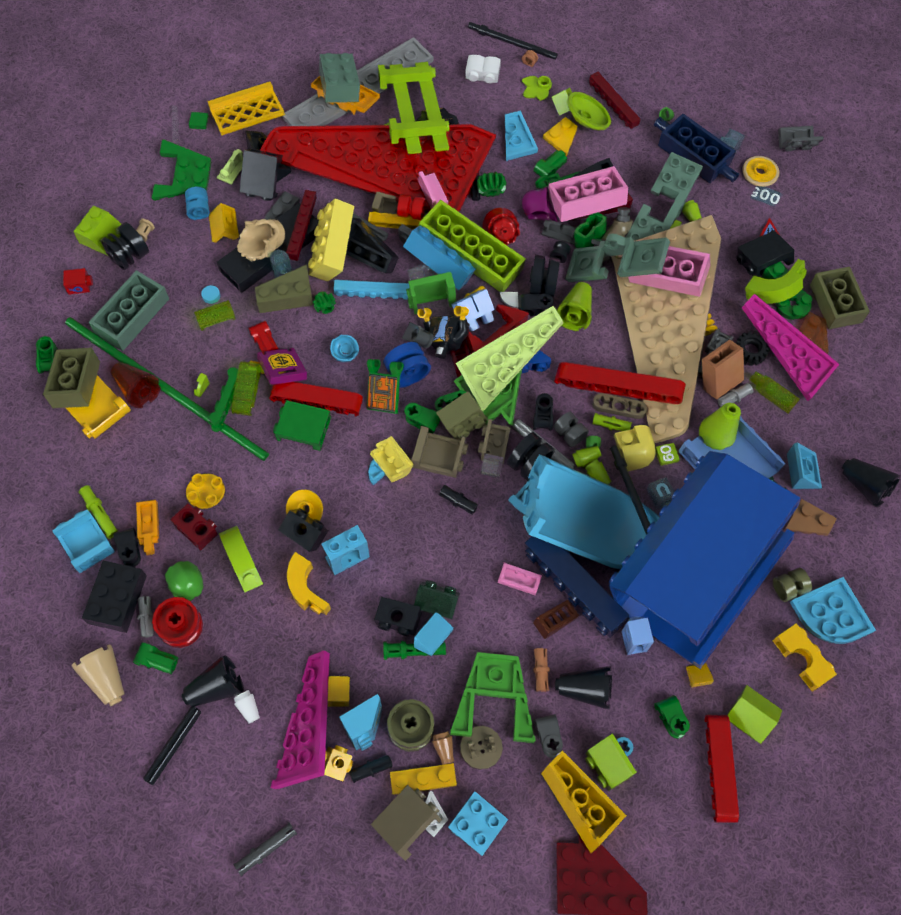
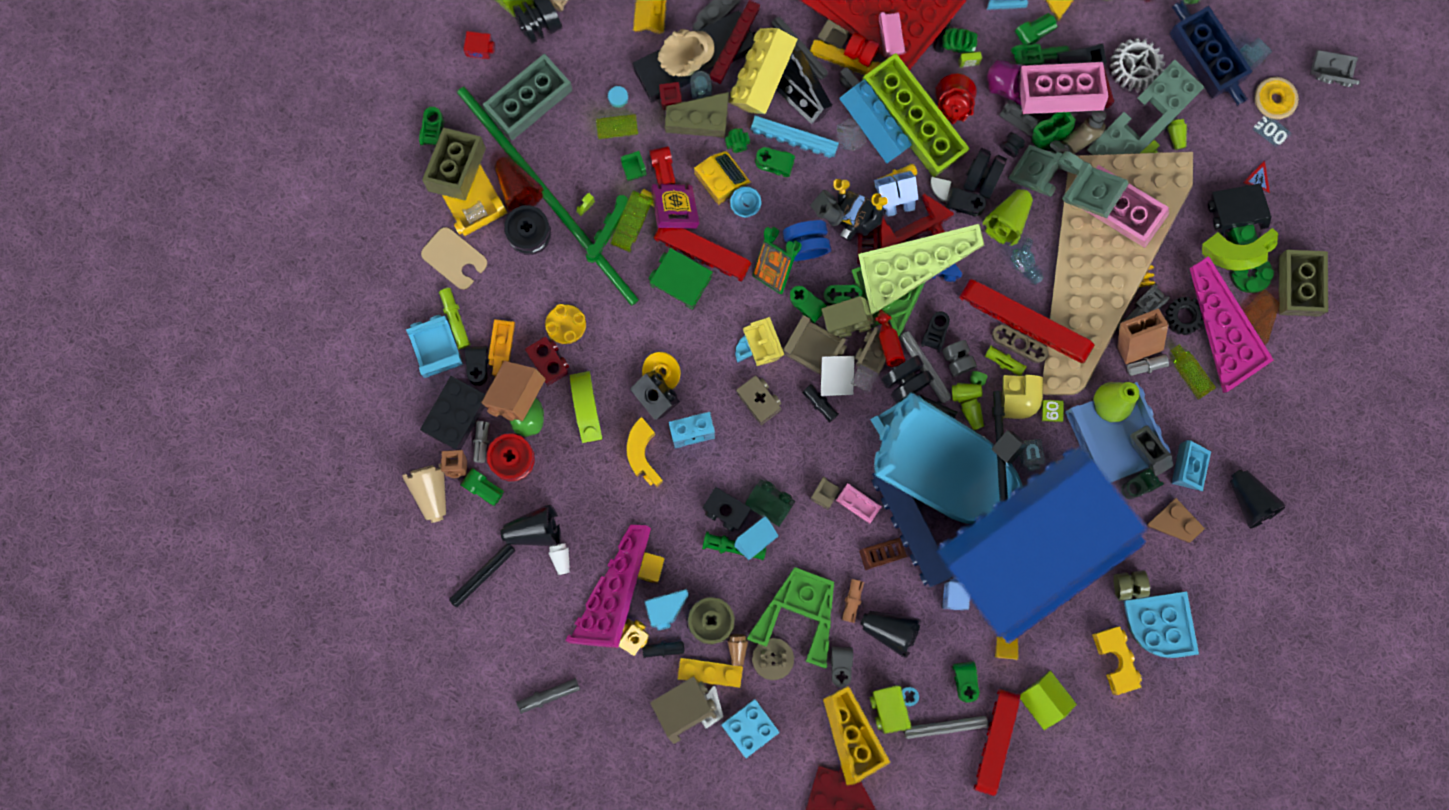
camera: 15 degrees right, 15 degrees up
(83, 459) = (449, 254): none -> tan piece
(100, 415) = (475, 212): none -> clear bush
(123, 648) = (454, 467): none -> nougat brick
(152, 417) = (527, 218): none -> black wheel
(166, 558) = (513, 391): none -> nougat brick
(237, 343) = (633, 166): none -> green panel
(255, 277) = (670, 94): none -> dark red panel
(315, 334) = (720, 176): none -> yellow slope
(362, 311) = (777, 161): none -> green piece
(406, 519) = (761, 411): none -> dark tan brick
(431, 289) = (856, 158): bright green panel -> none
(467, 470) = (837, 375): none -> white sticker
(485, 578) = (825, 493): none -> dark tan panel
(504, 197) = (970, 59): none -> lime tile
(505, 426) = (890, 341): none -> red wheel
(601, 339) = (1025, 260): none -> clear light blue piece
(633, 164) = (1122, 54): none -> white gear
(641, 489) = (1009, 447): none -> dark grey panel
(667, 767) = (946, 727): none -> light grey axle
(766, 460) = (1151, 450): none -> dark grey brick

